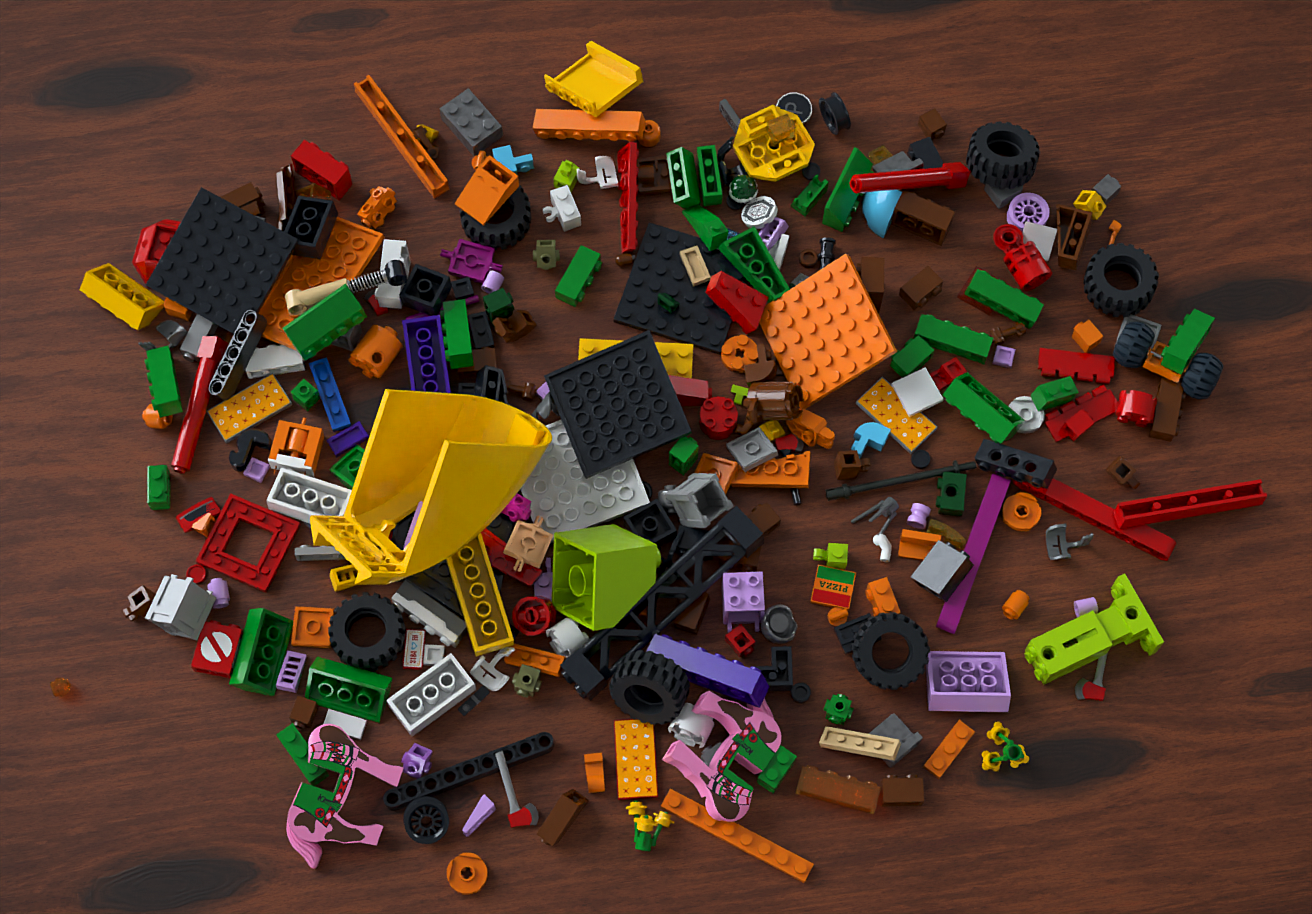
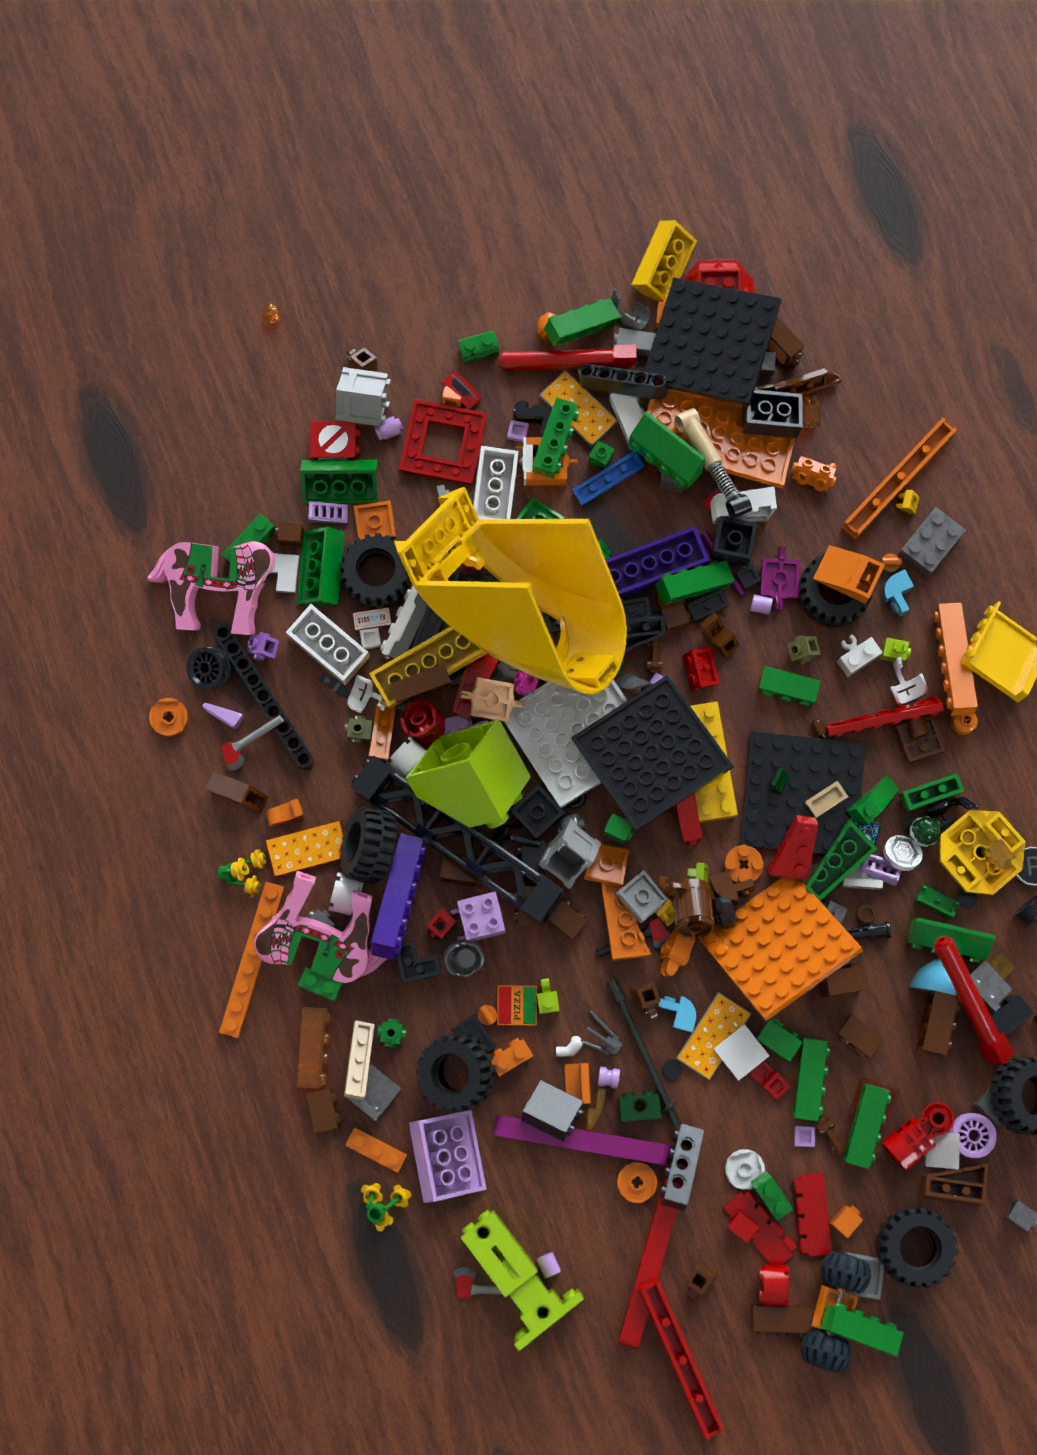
camera: 80 degrees right, 10 degrees up
(196, 572) = (404, 404): red piece -> none
(278, 427) = (555, 437): none -> green brick
(322, 169) = (841, 411): red brick -> none
(347, 439) = (567, 505): dark purple tile -> none
(376, 351) = (664, 510): orange cylinder -> none
(431, 149) = (892, 511): reddish brown bar -> none
(498, 305) = (733, 615): dark green brick -> none
(499, 602) = (420, 683): none -> reddish brown tile
(542, 351) = (700, 668): none -> red bracket
(683, 178) = (921, 767): green brick -> none
(718, 417) = (667, 856): red brick -> none
(729, 115) = (1008, 800): dark grey tile -> none
(784, 374) = (724, 912): none -> black rock
(800, 692) = (404, 993): black tile -> none
(983, 408) = (736, 1123): green brick -> none
(1015, 604) = (536, 1192): orange brick -> none
(1051, 540) = (614, 1218): dark grey helmet -> none
(1091, 202) = (998, 1204): yellow brick -> none
(1115, 227) = (980, 1233): orange hand -> none

